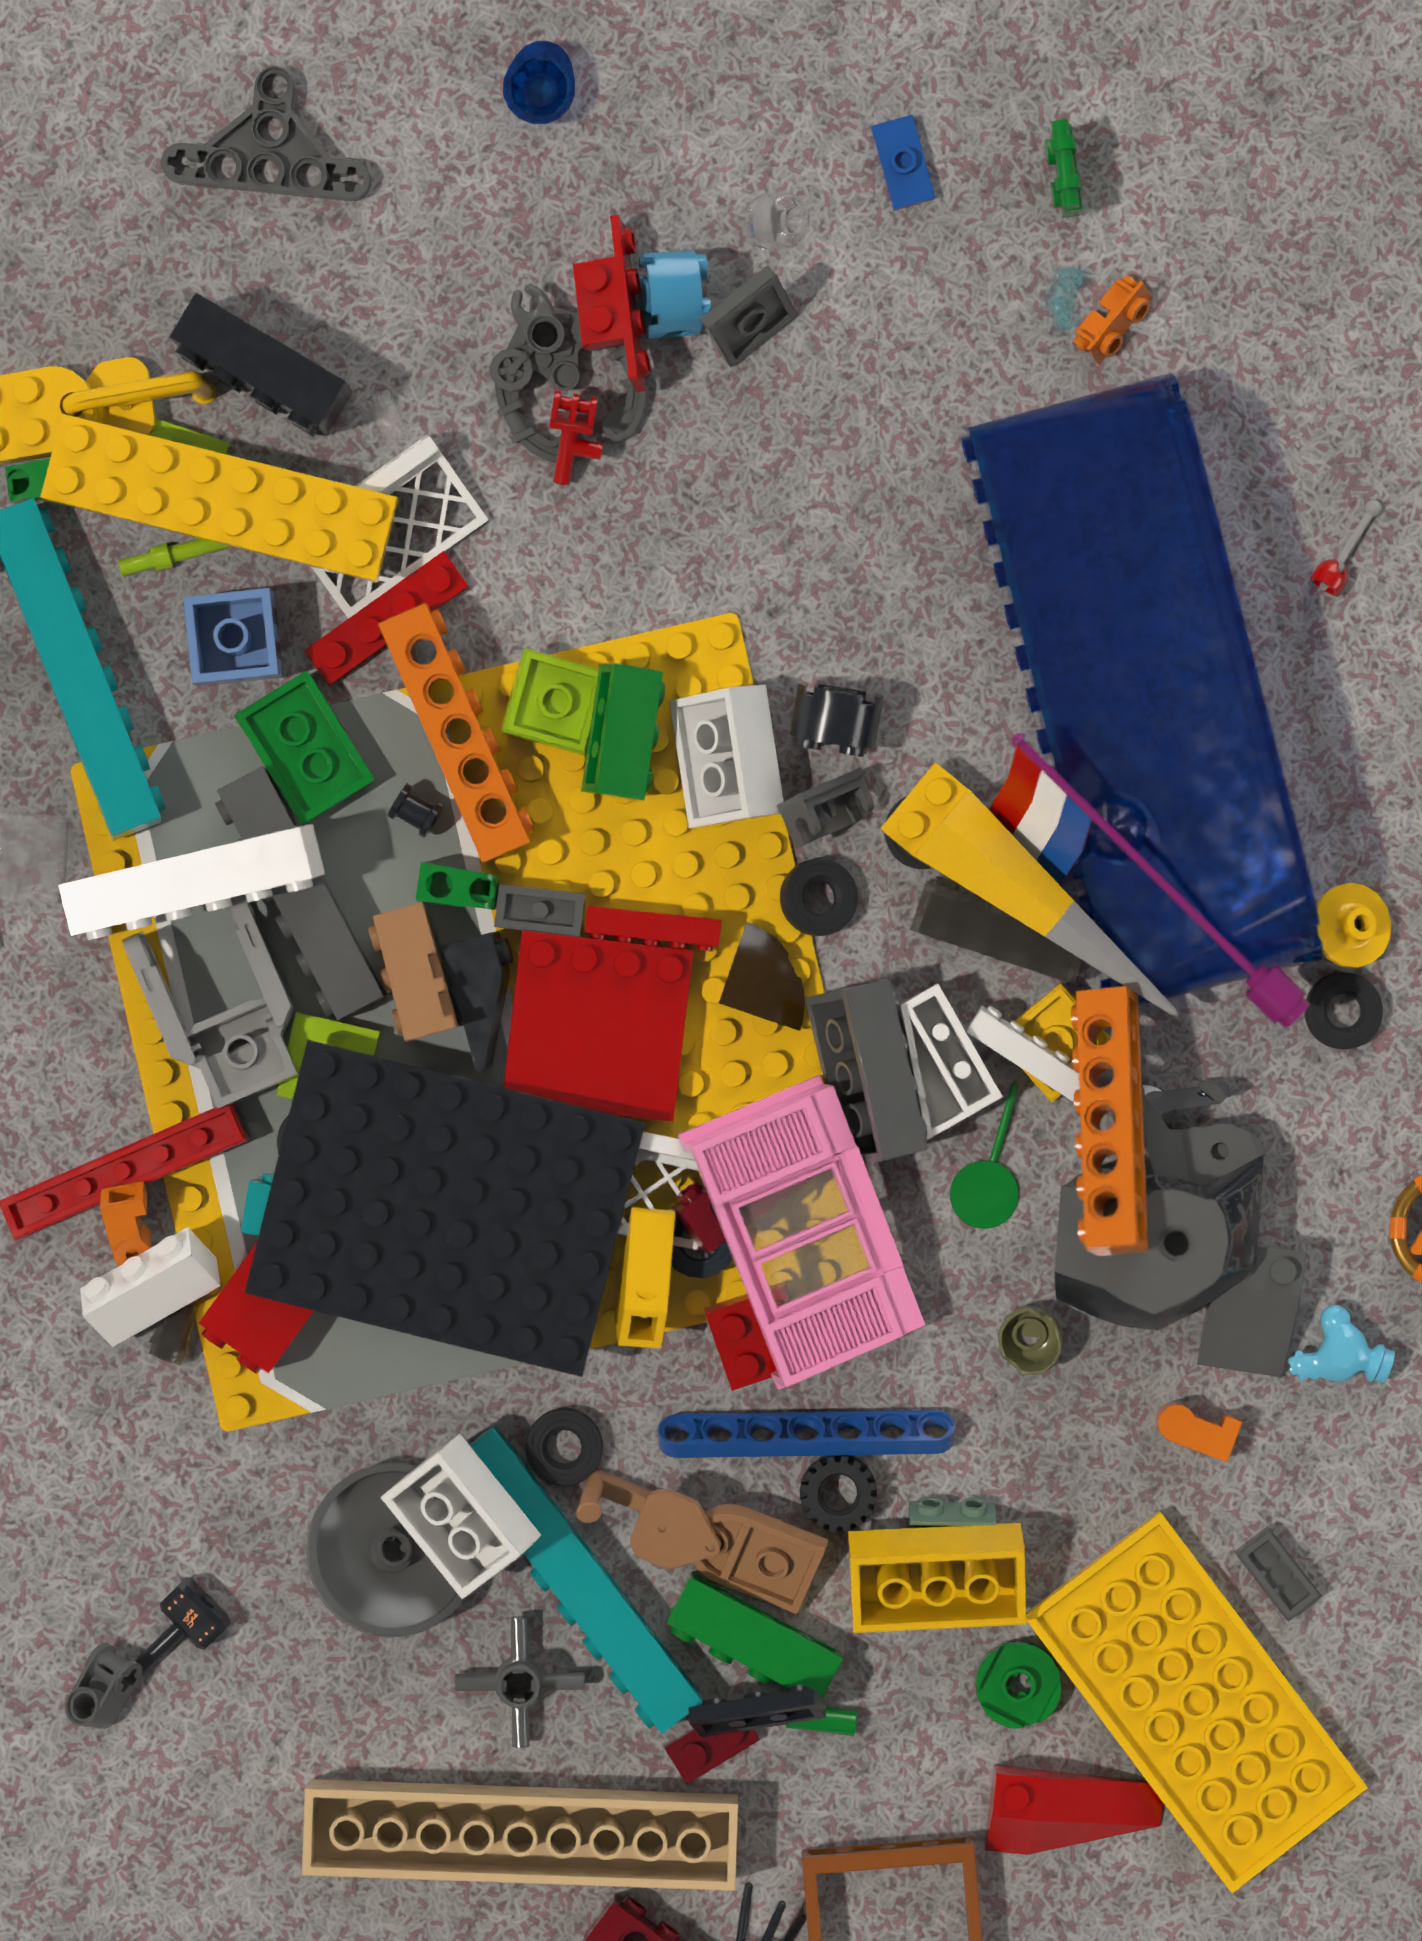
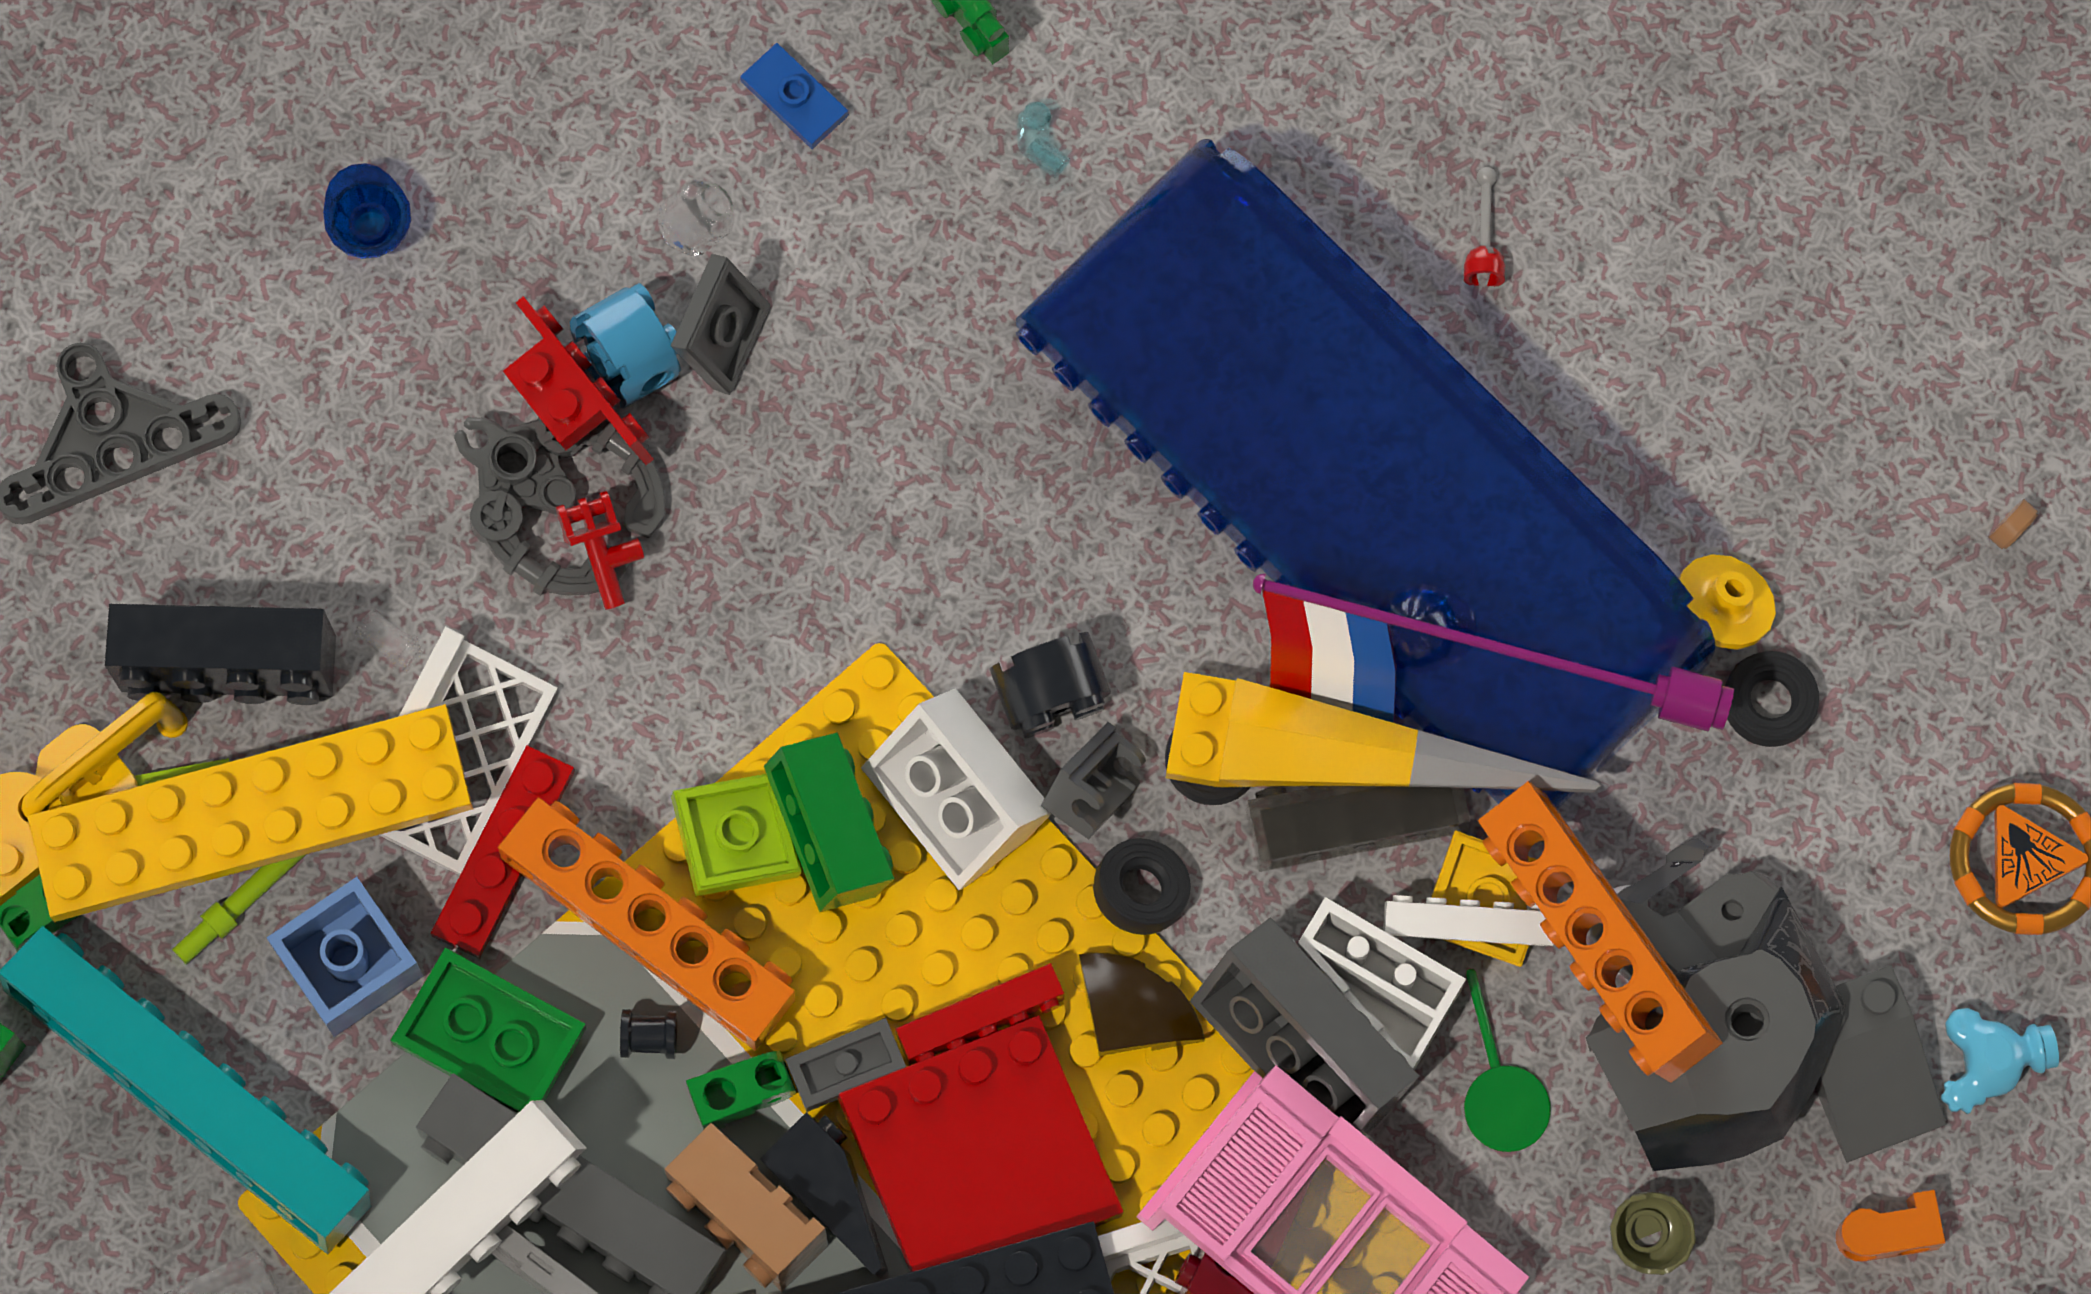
camera: 30 degrees left, 15 degrees down
(1103, 336) = (1109, 111): orange hinge -> none

